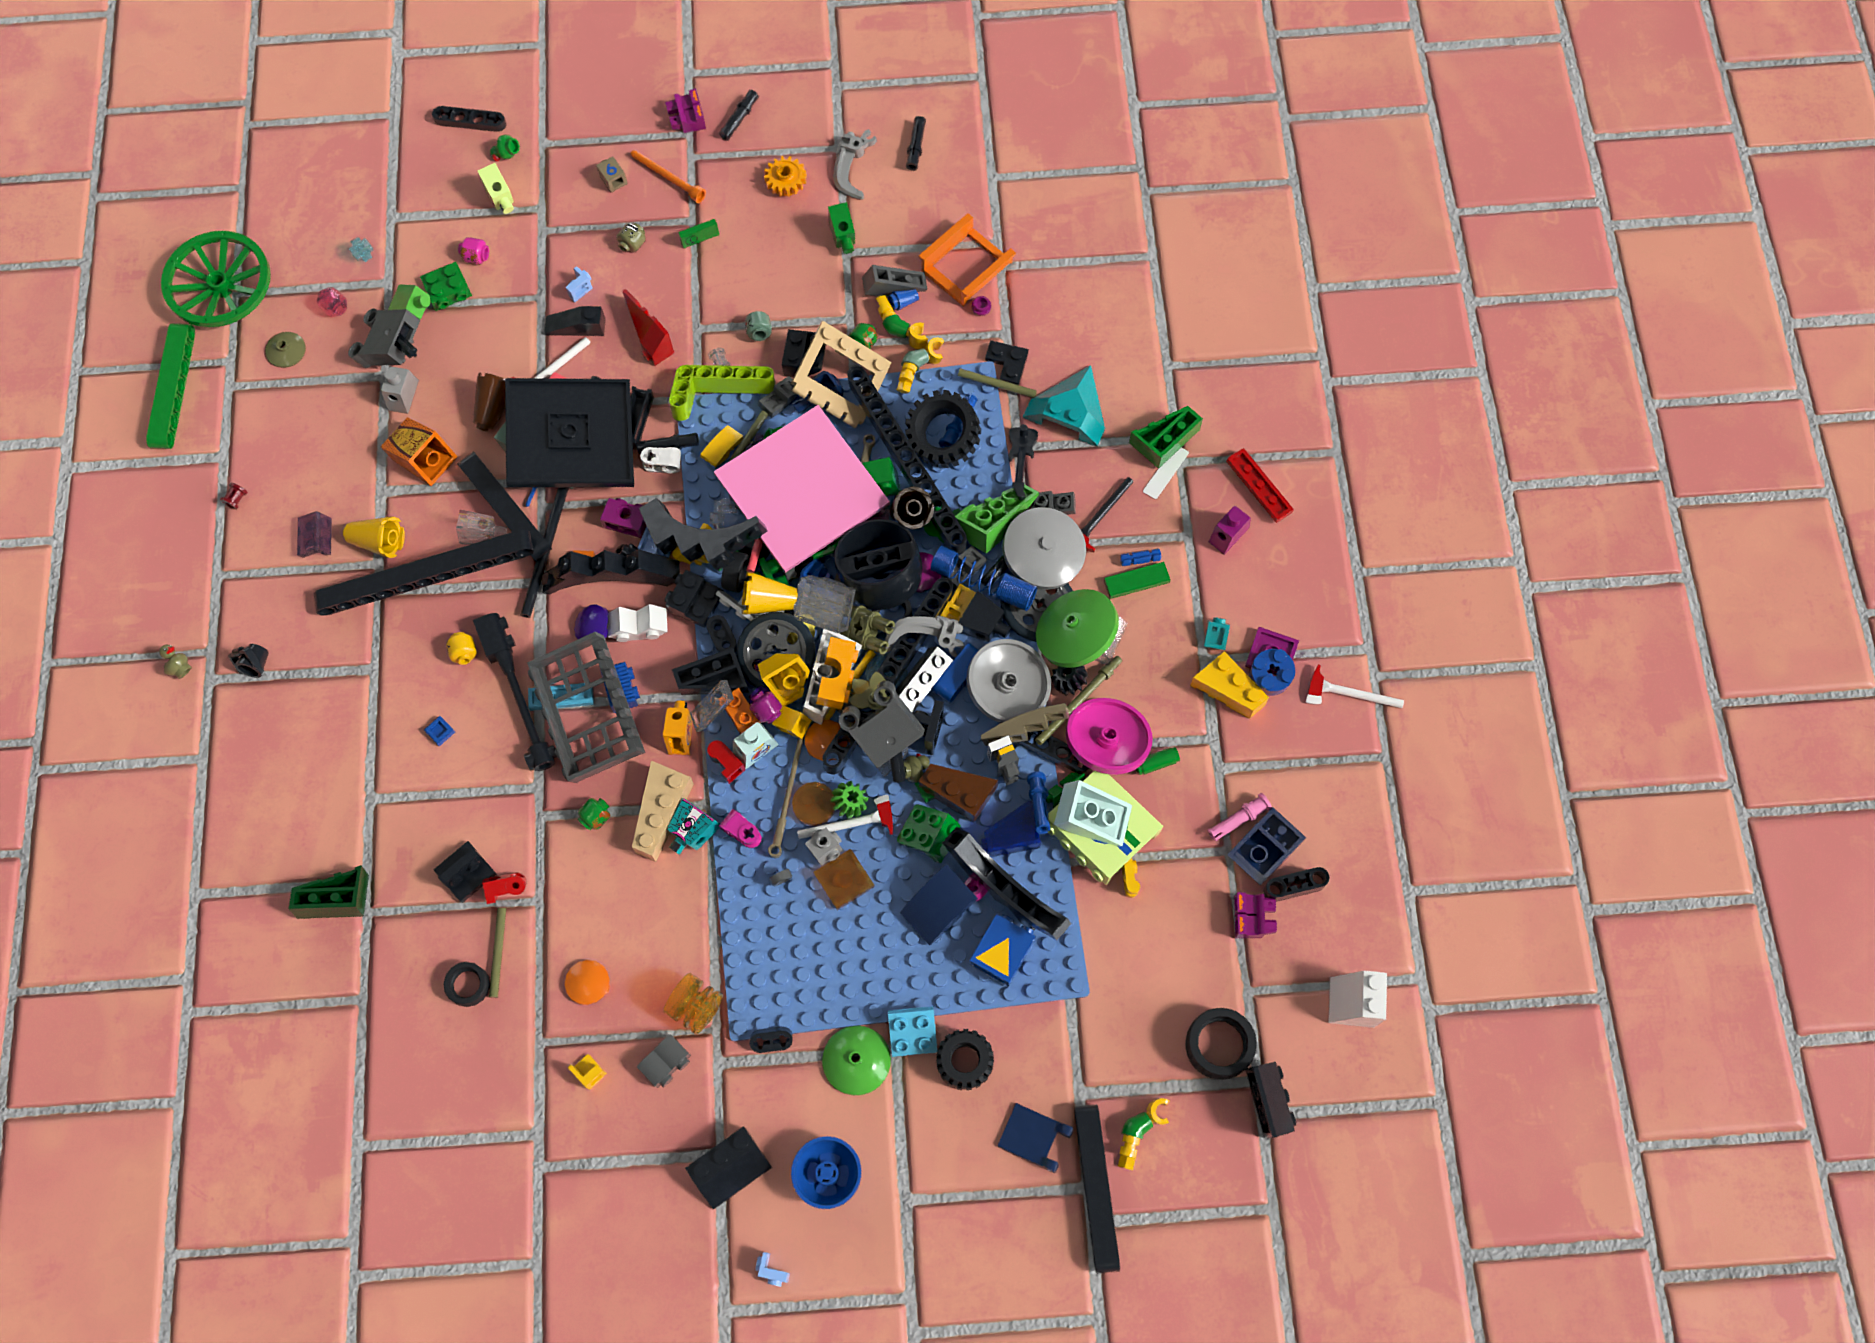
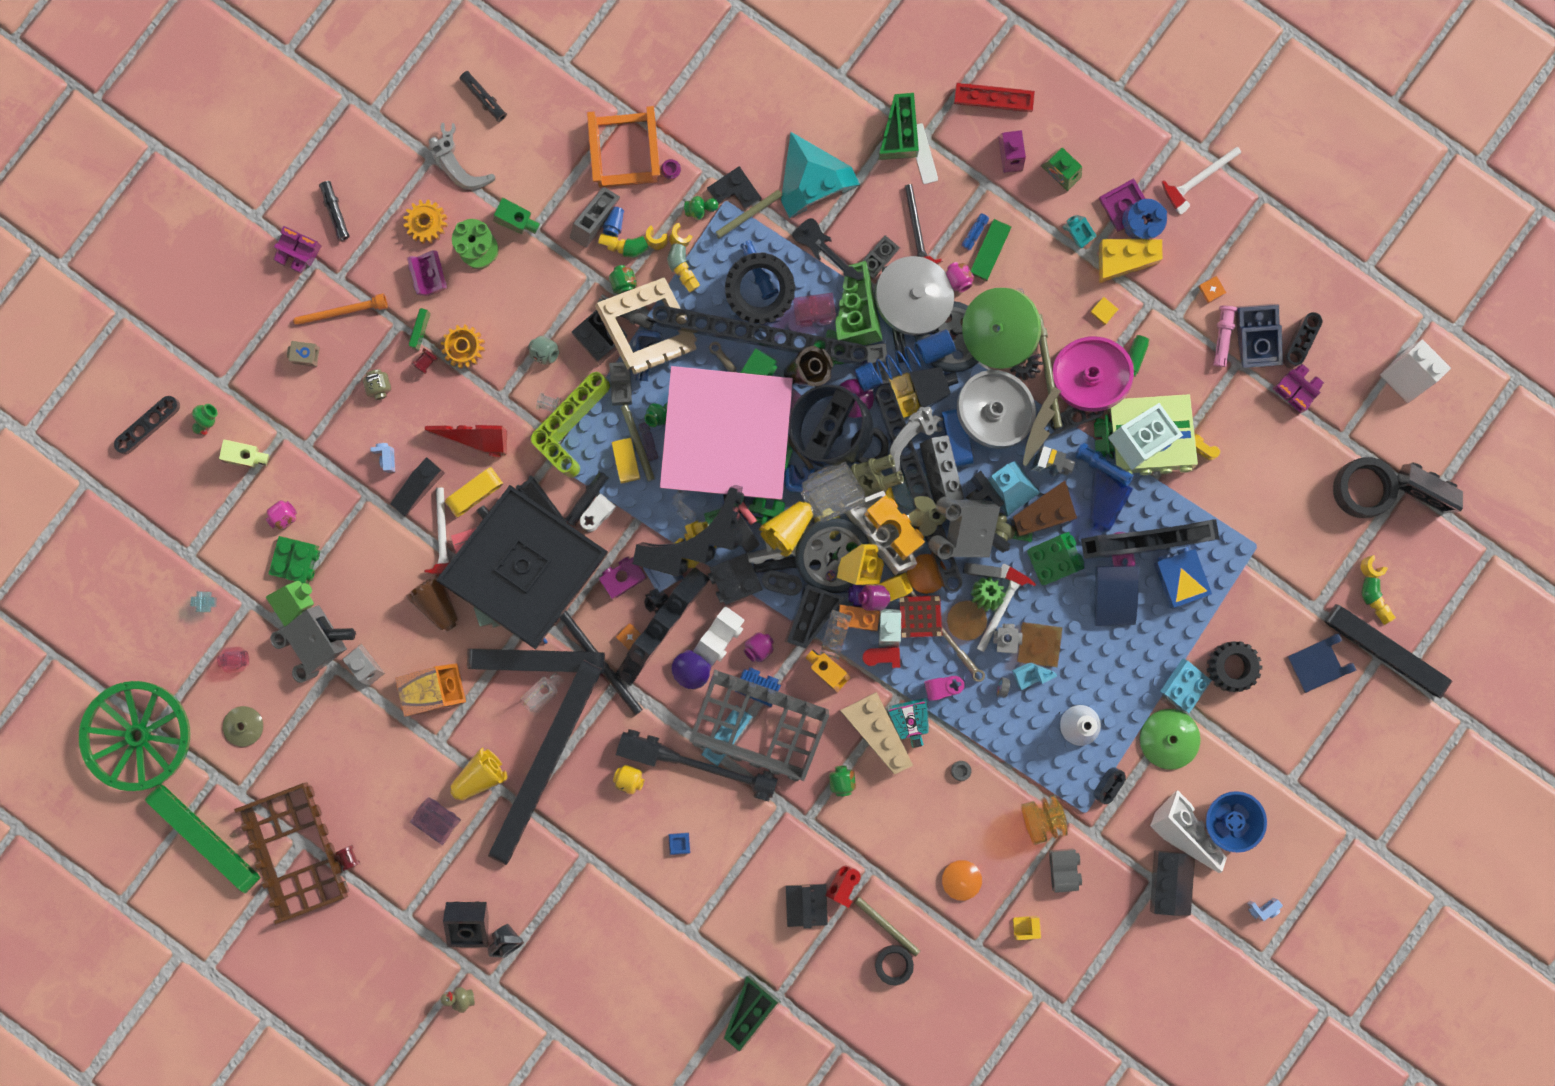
camera: 50 degrees left, 15 degrees up
(185, 444) = (264, 860): none -> reddish brown window
(243, 620) = (466, 924): none -> black slope
(603, 363) = (474, 492): none -> yellow beam
(654, 661) = (759, 647): none -> magenta head
(677, 255) = (424, 361): none -> dark red bush
(683, 905) = (961, 770): none -> dark grey tile
(712, 270) = (454, 340): none -> light orange gear
(737, 623) = (785, 563): none -> black axle
(745, 206) = (427, 273): none -> magenta bracket
(784, 1132) = (1180, 827): none -> white wedge
(785, 762) = (921, 616): none -> tile
(796, 221) = (475, 243): none -> bright green piece
(803, 970) = (1073, 725): none -> white cone
(812, 892) = (1032, 673): none -> medium azure slope
(841, 367) = (635, 317): none -> dark grey pin
(866, 780) = (982, 570): none -> dark grey beam
(955, 739) = (1013, 487): none -> medium azure slope
(964, 484) = (814, 309): none -> clear pink brick
(969, 345) = (697, 207): none -> green animal
(1092, 572) = (960, 277): none -> dark pink head
(1170, 706) = (1104, 310): none -> yellow tile
(1253, 575) = (1063, 168): none -> green torso
(1269, 777) = (1212, 289): none -> orange tile

